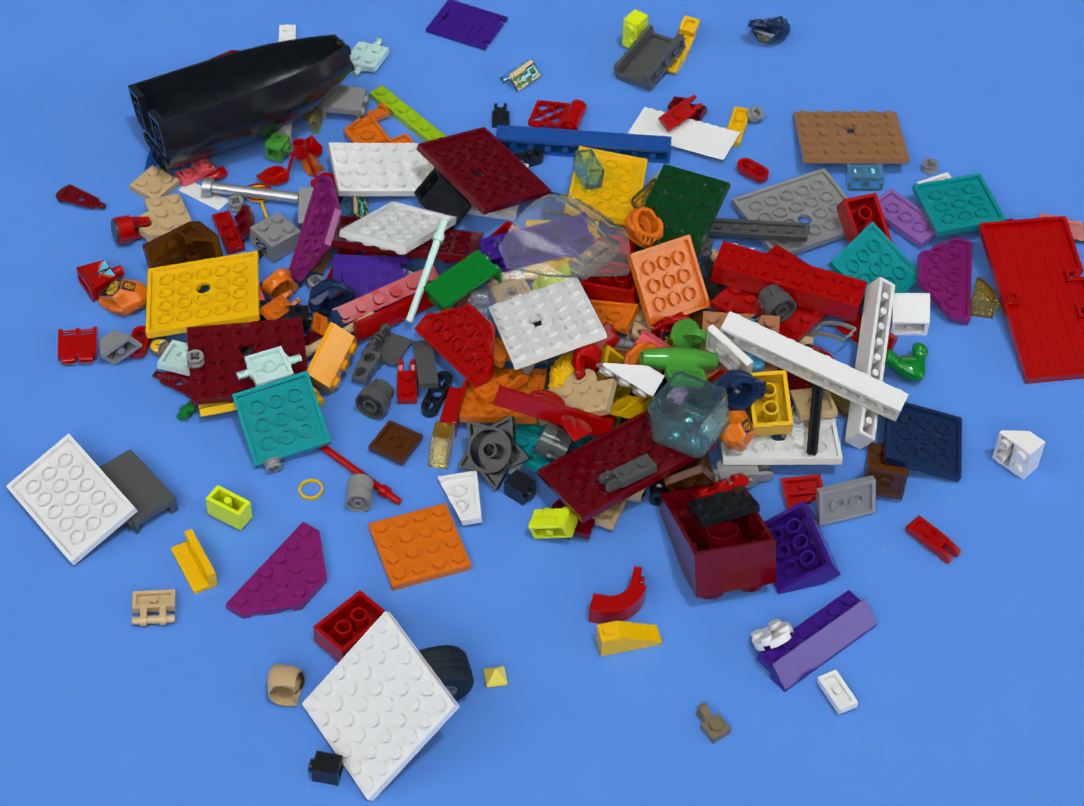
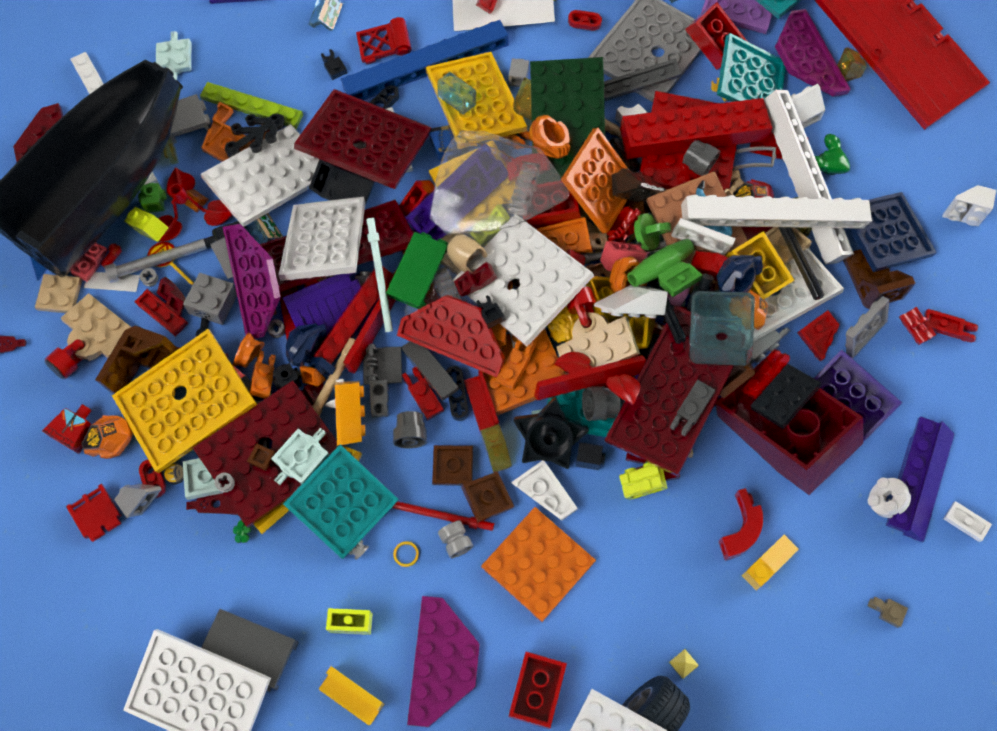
camera: 25 degrees left, 20 degrees up
(236, 353) = (261, 457): none -> reddish brown plate
(259, 161) = (146, 224): none -> neon yellow brick
(395, 135) = (274, 123): none -> black plant
(408, 475) = (487, 497): none -> reddish brown plate
(500, 332) = (491, 313): none -> black plate
(502, 308) = (474, 281): none -> dark red slope
(509, 279) = (462, 250): none -> tan piece
(698, 298) = (634, 185): none -> clear smoke slope
(898, 524) = (917, 326): none -> red hips

